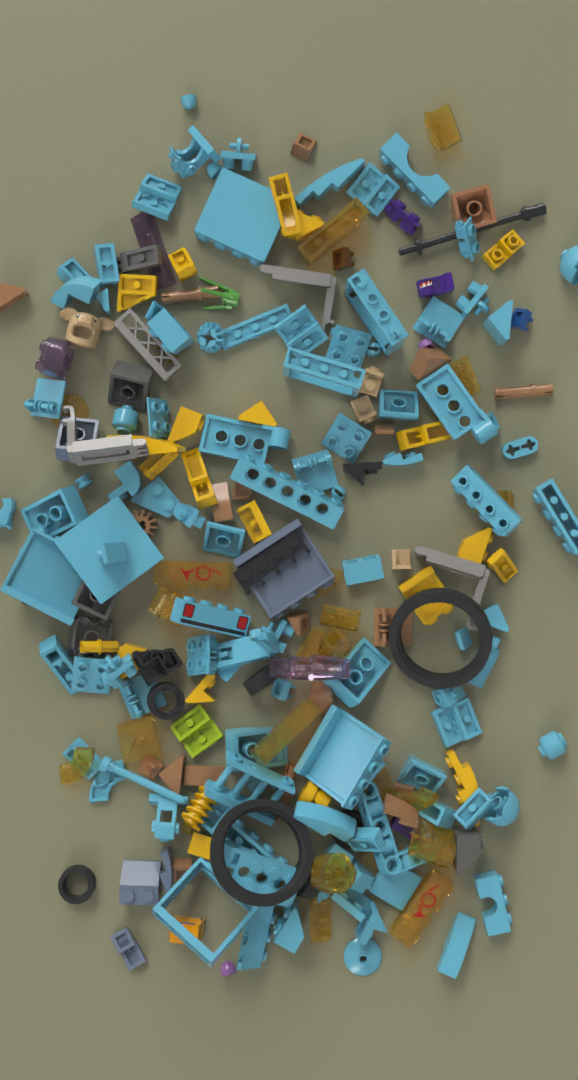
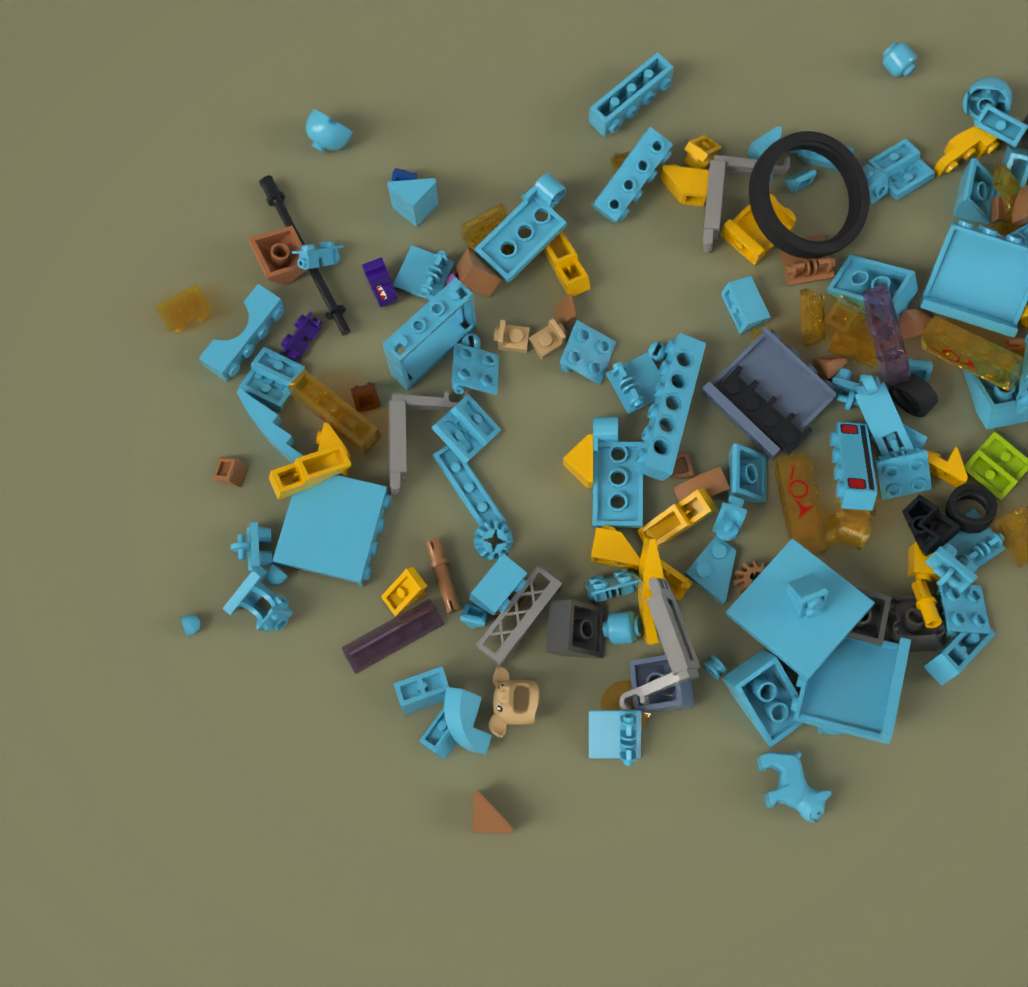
camera: 95 degrees left, 15 degrees down
(55, 357) = (560, 731): clear purple brick -> none
(104, 300) = (472, 683): medium azure slope -> none
(130, 479) = (703, 604): medium azure brick -> none
(135, 290) = (449, 646): yellow wing -> none
(139, 259) = (407, 646): dark grey hinge -> none
(157, 197) = (322, 641): medium azure slope -> none
(230, 297) = (437, 525): bright green plant -> none
(254, 521) = (716, 442): yellow hinge -> none
(323, 372) = (516, 380): medium azure window -> none
(356, 470) = (624, 331): black slope -> none
(396, 459) = (602, 288): medium azure slope -> none
(398, 405) = (534, 299): medium azure slope -> none
(400, 559) = (723, 265): tan panel -> none
(477, 291) = (391, 233): medium azure hips -> none
(503, 250) = (323, 217): yellow slope -> none
(518, 443) = (561, 155): medium azure beam -> none
(523, 391) = (487, 156): medium nougat pin -> none

